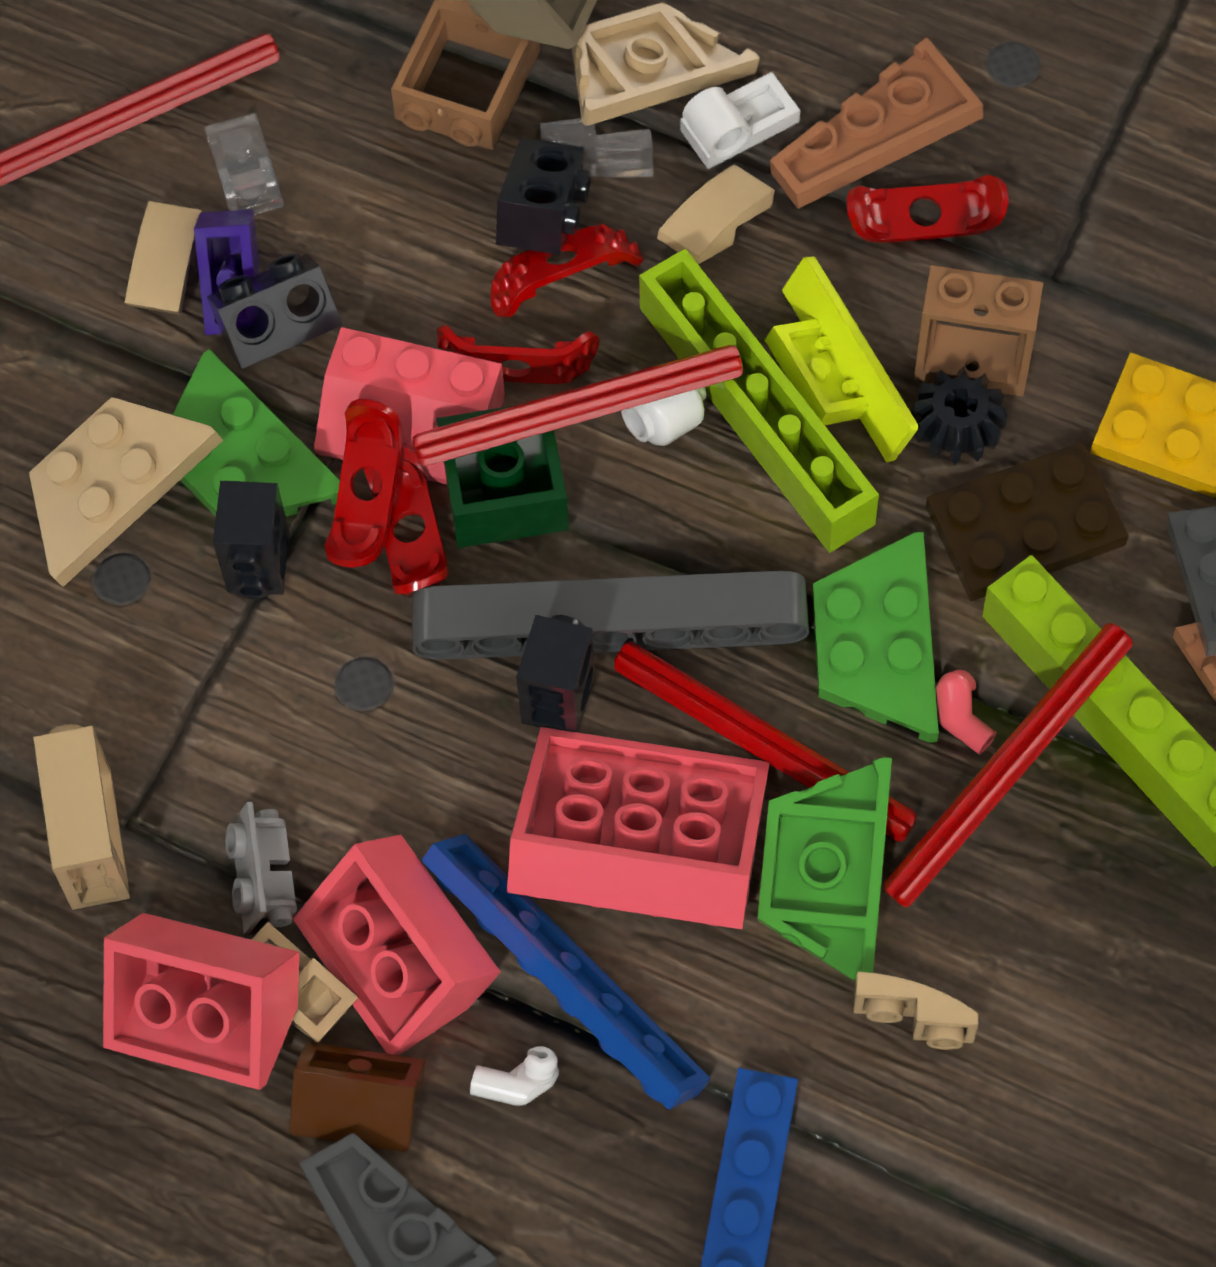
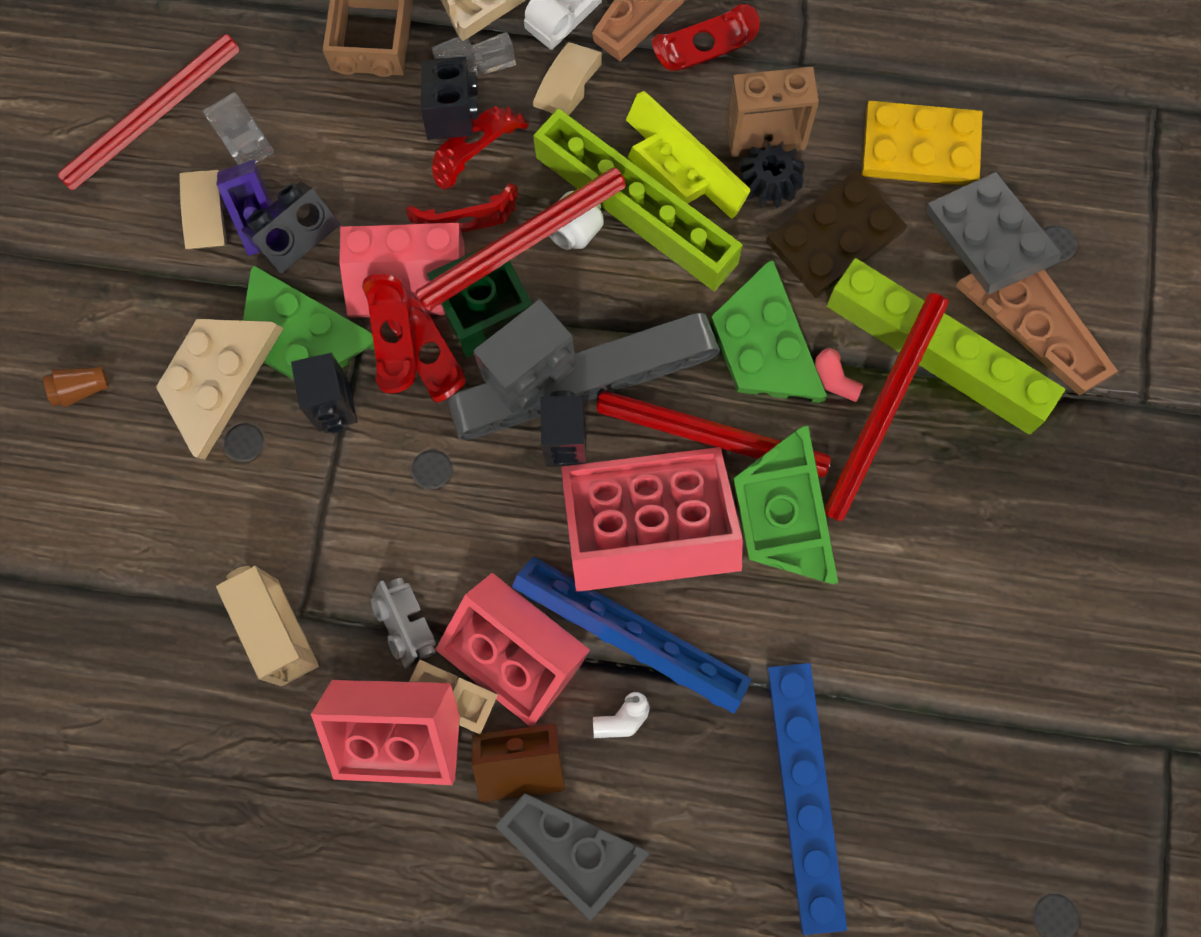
camera: 15 degrees left, 10 degrees up
(533, 559) = (526, 357): none -> dark grey brick
(937, 1016) = (883, 592): tan slope -> none

